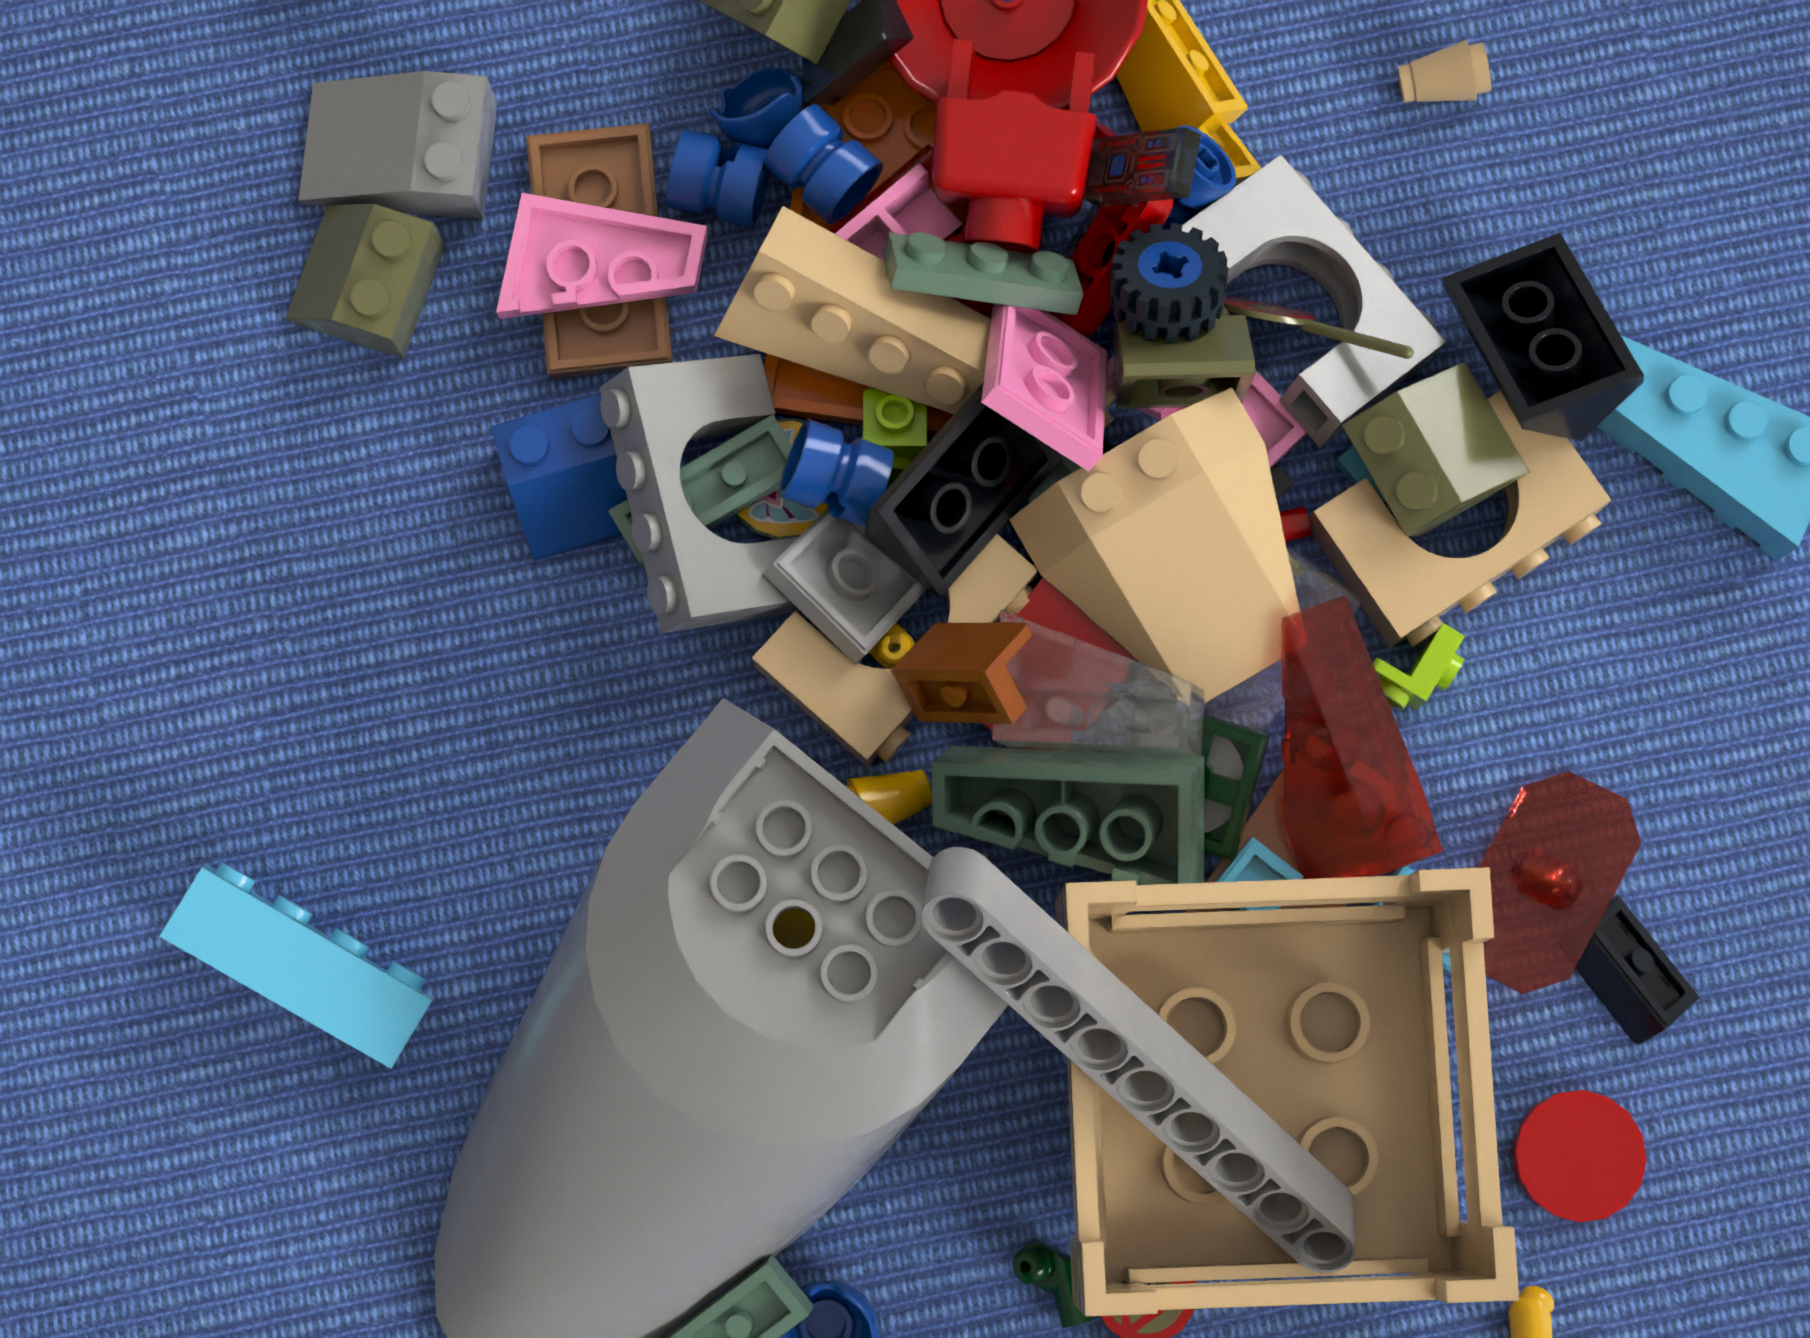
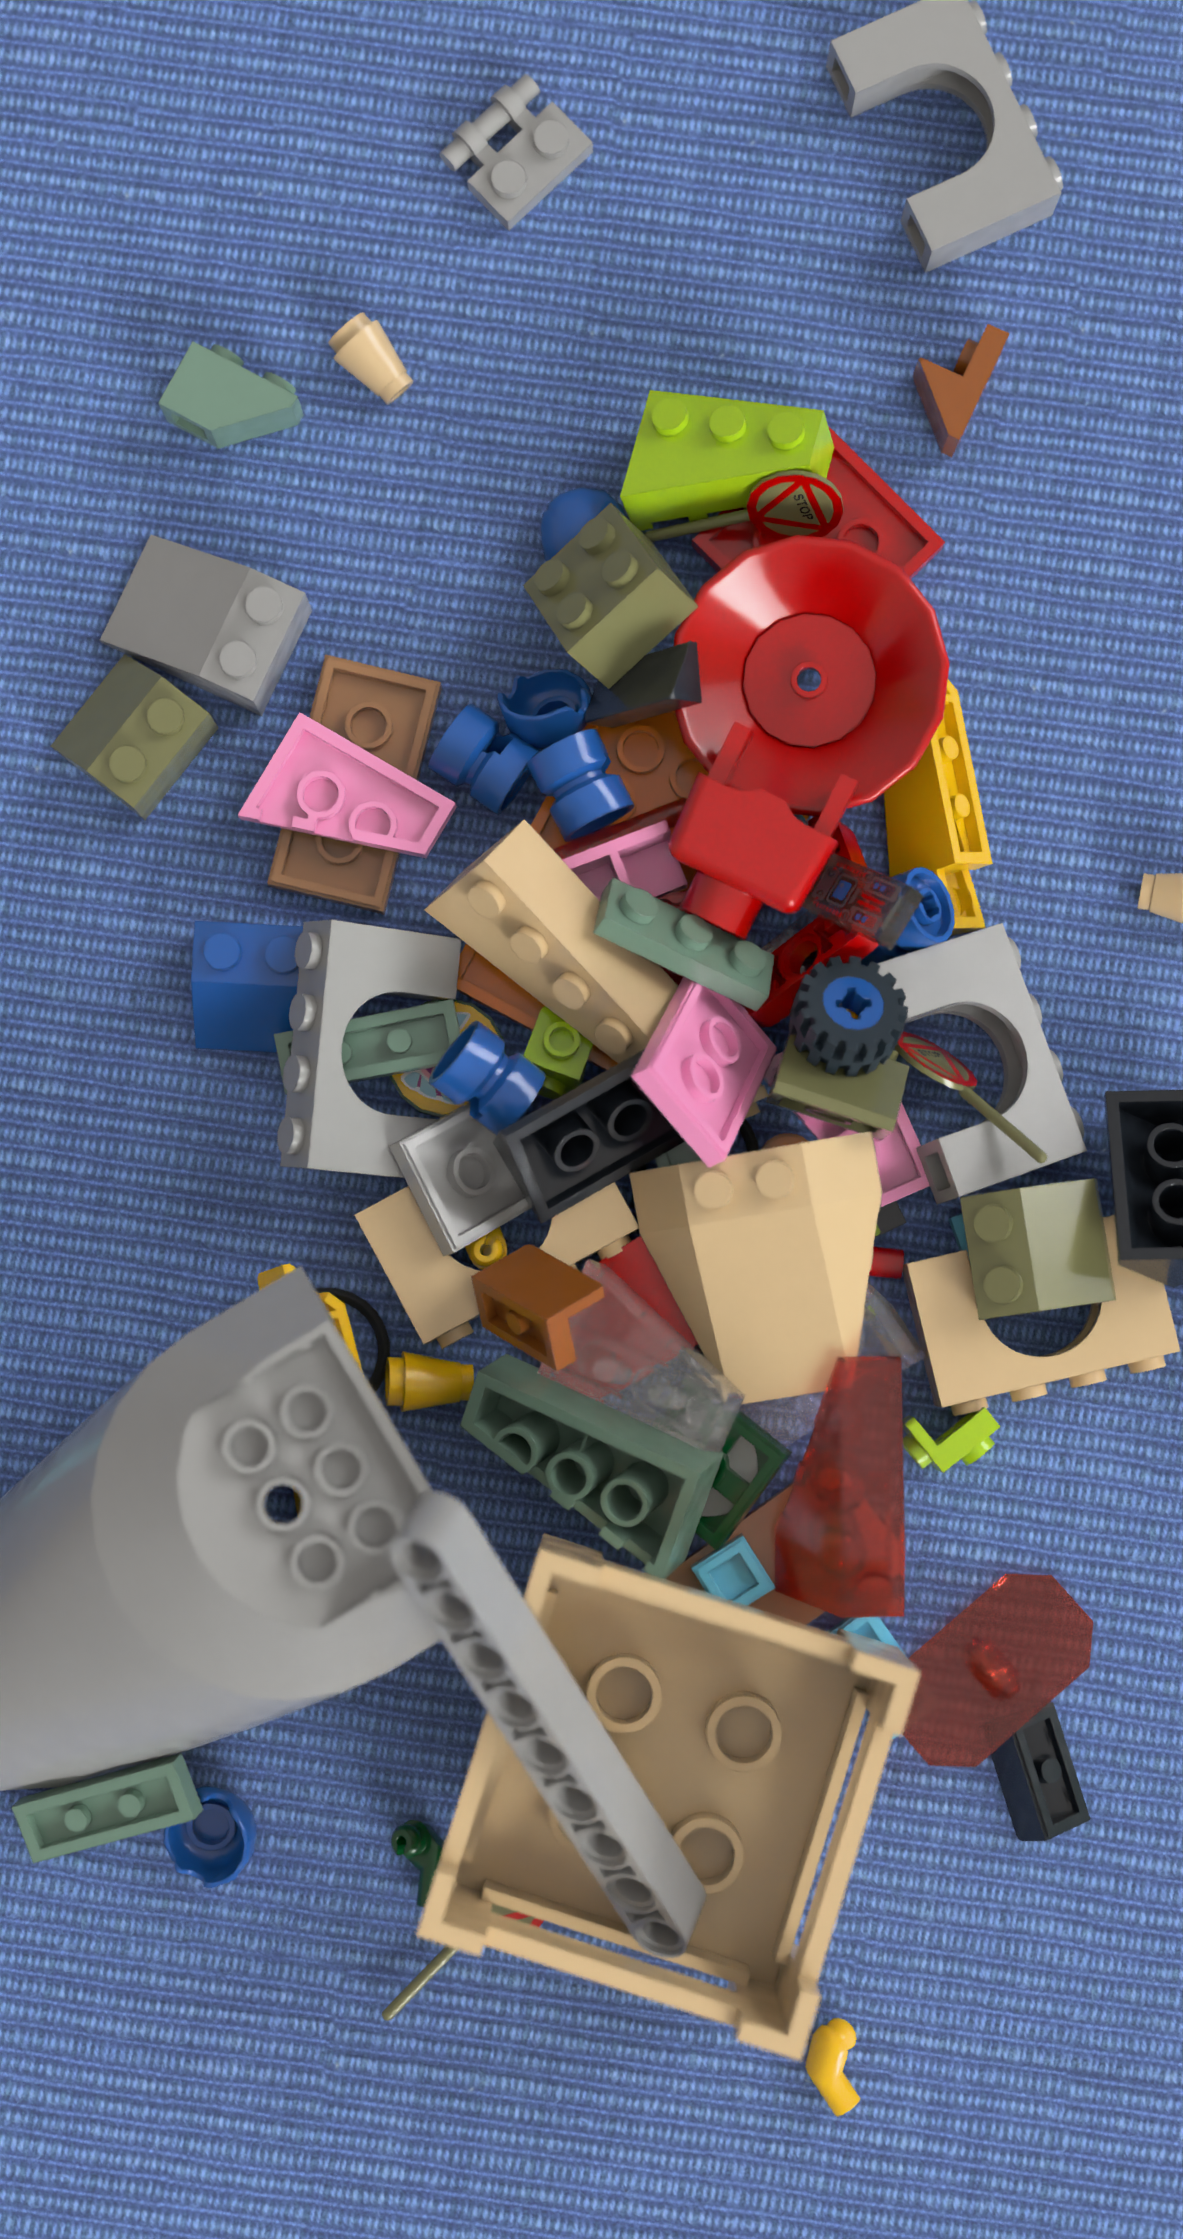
camera: 20 degrees right, 5 degrees up
(1579, 1156) = (928, 1921): red tile -> none

